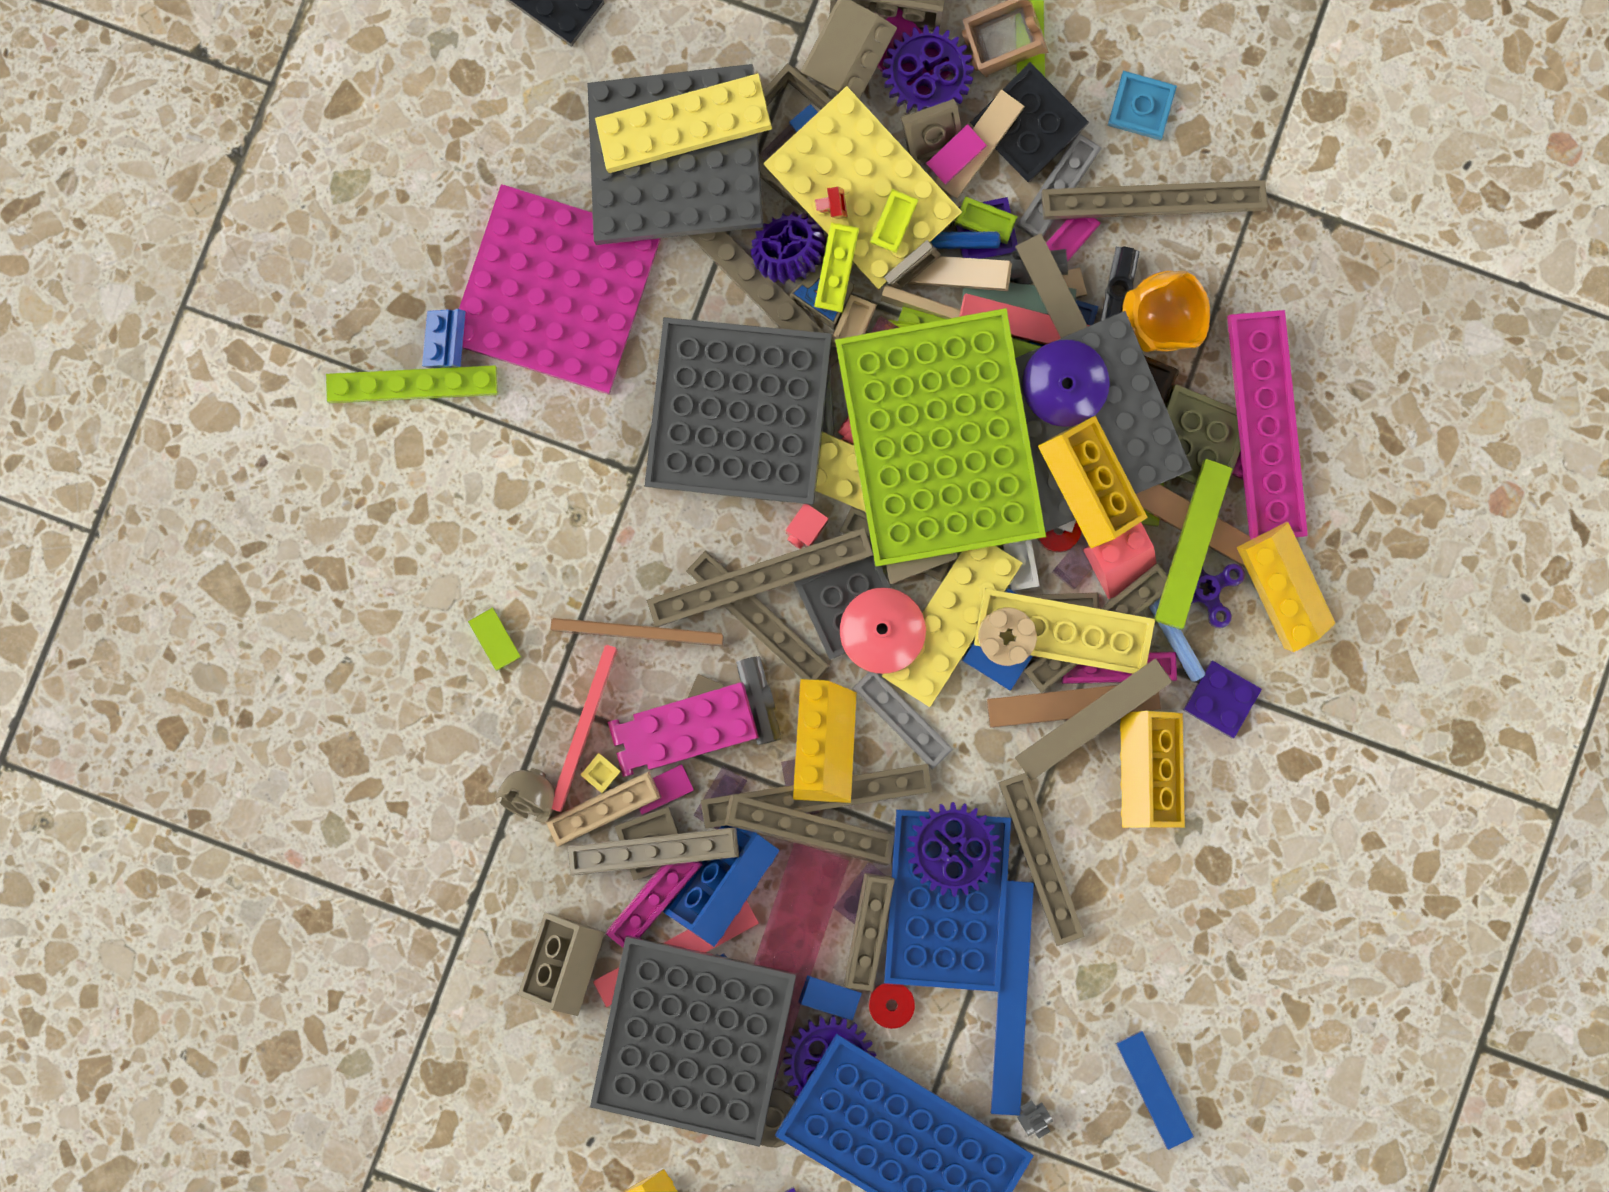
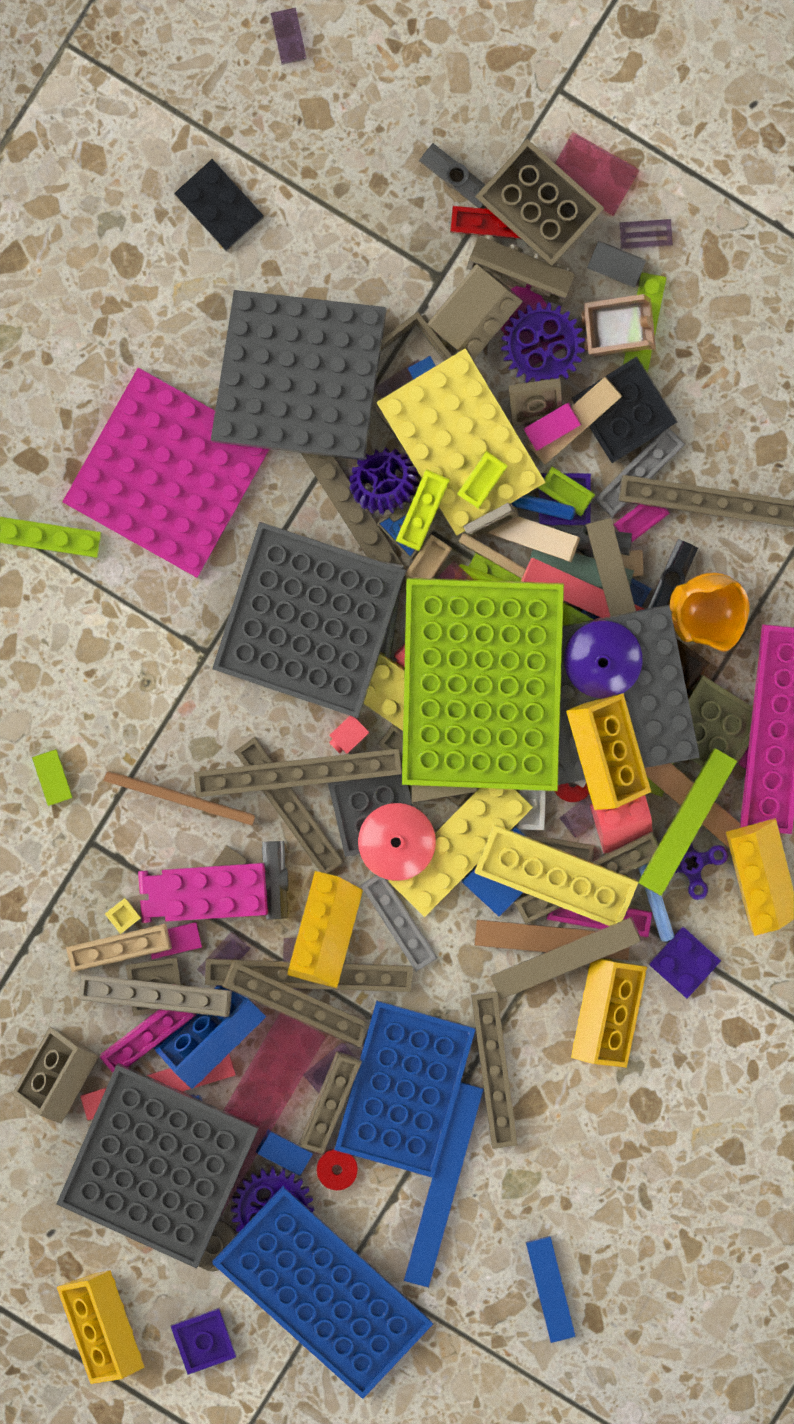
camera: 20 degrees right, 5 degrees up
(443, 338) = (59, 499): plate -> none
(527, 793) = (55, 921): dark tan cylinder -> none
(583, 727) = (115, 873): coral tile -> none
(683, 123) = (312, 350): light yellow plate -> none
(834, 203) = (432, 454): red tile -> none
(971, 830) = (398, 1059): dark purple gear -> none
(1022, 629) = (500, 857): tan plate -> none
(1035, 1119) = (440, 1293): dark grey gear -> none
(1142, 105) = (730, 412): dark azure tile -> none

